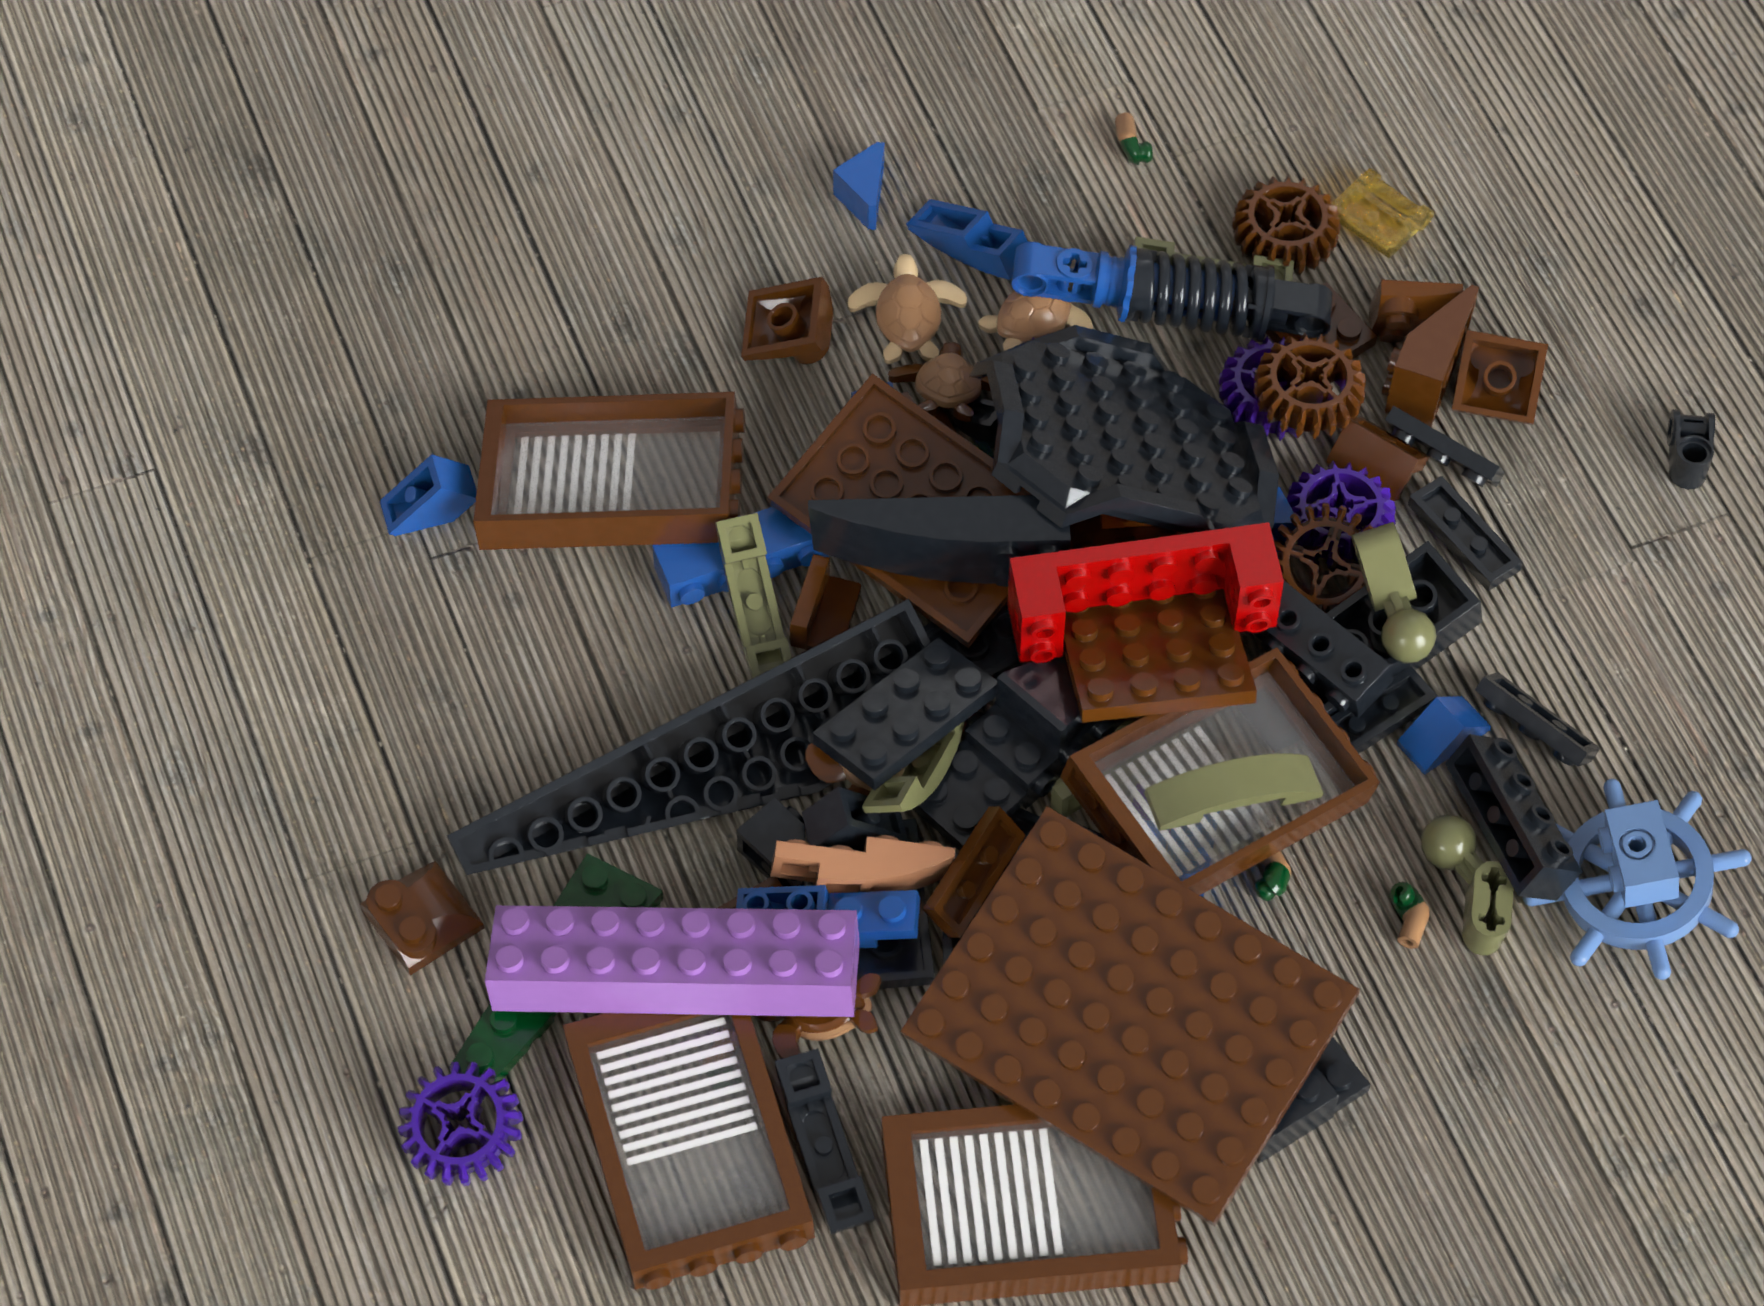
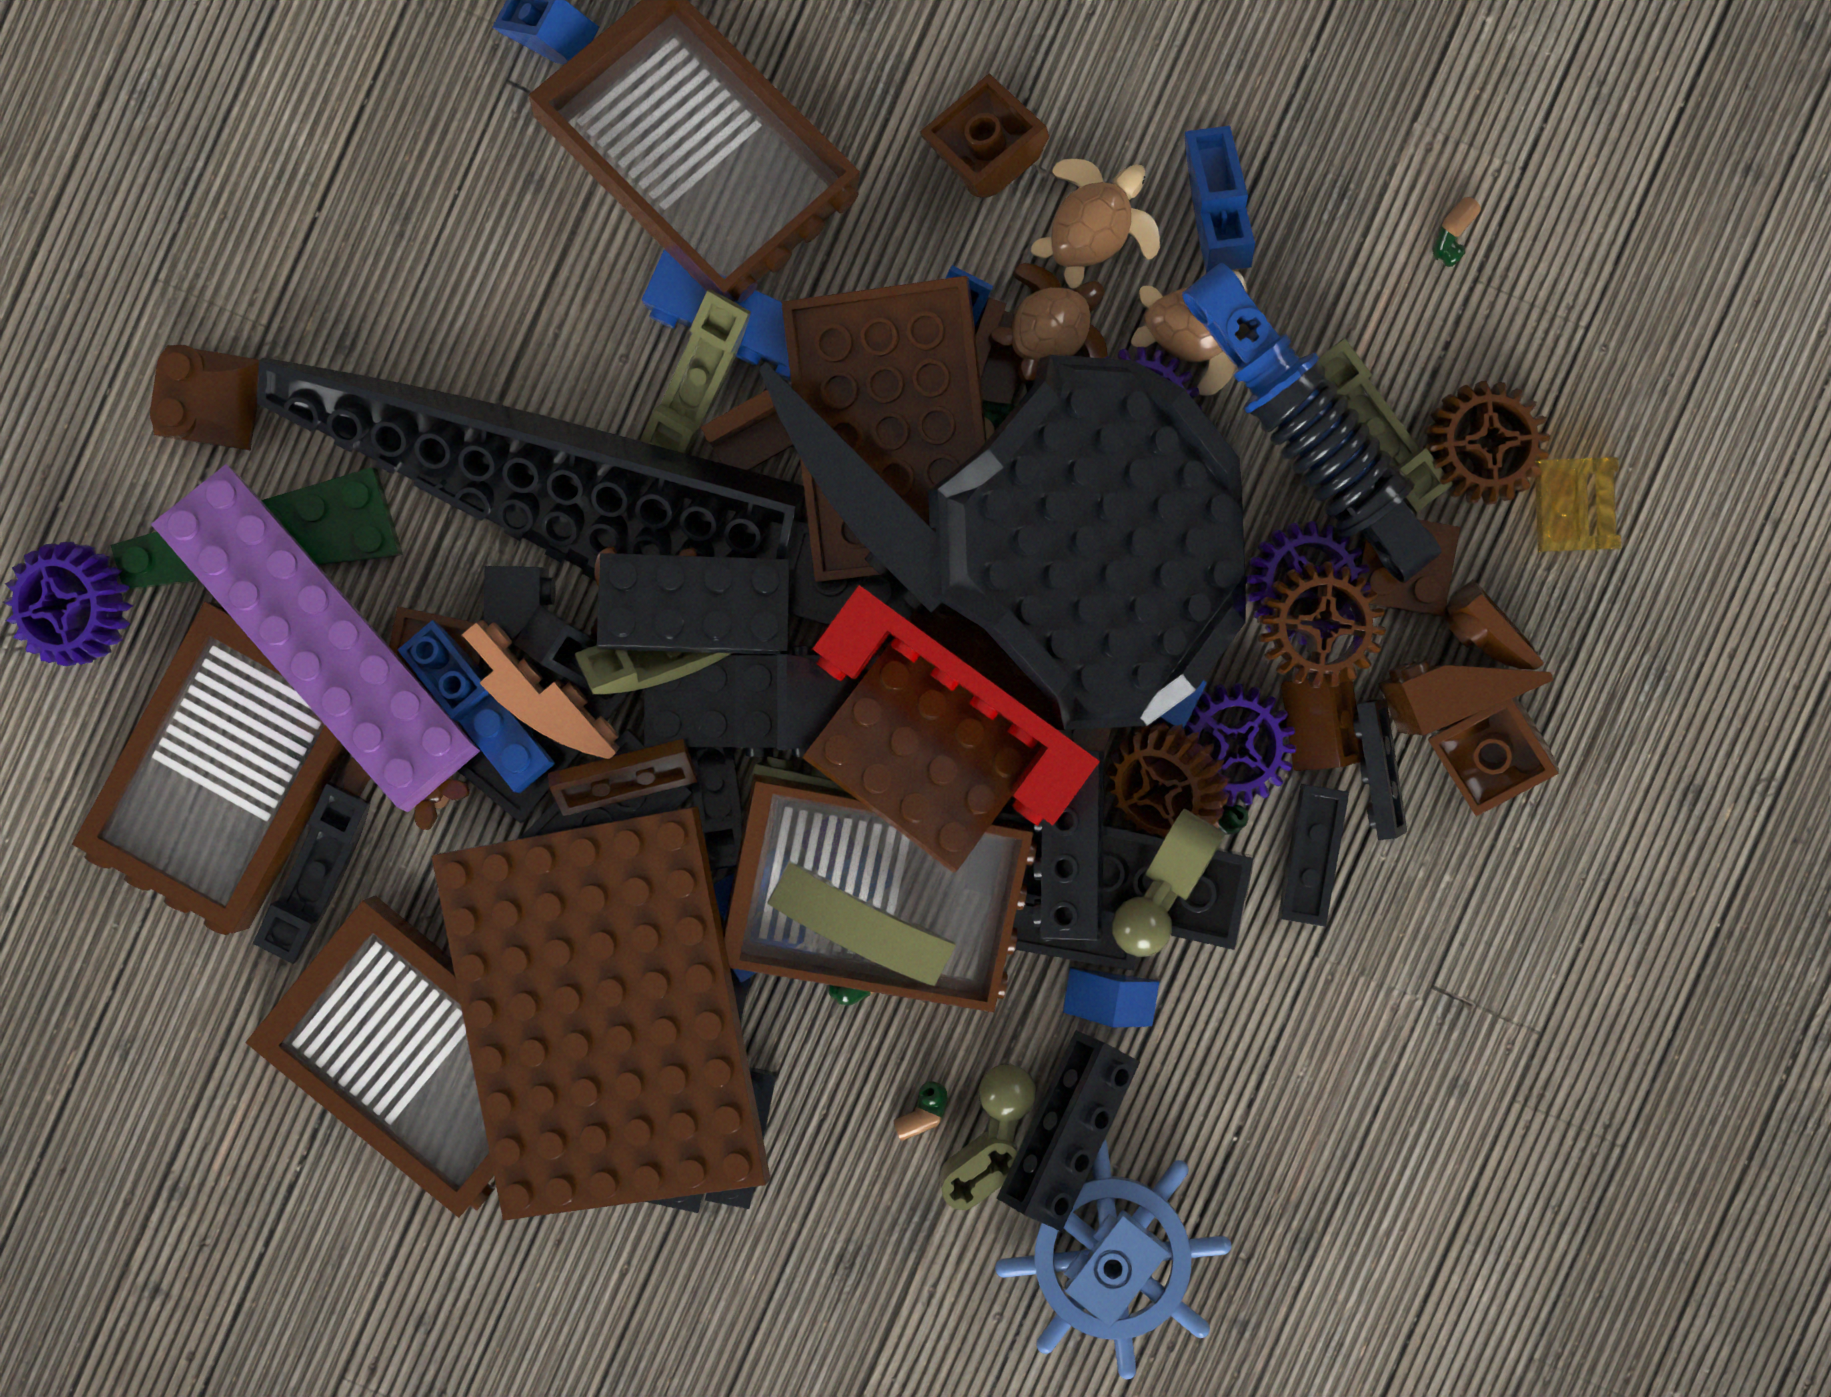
camera: 45 degrees right, 30 degrees up
(859, 184) = (1186, 56): blue slope -> none
(1536, 720) = (1188, 1061): black plate -> none
(1690, 448) = (1583, 953): black piece -> none

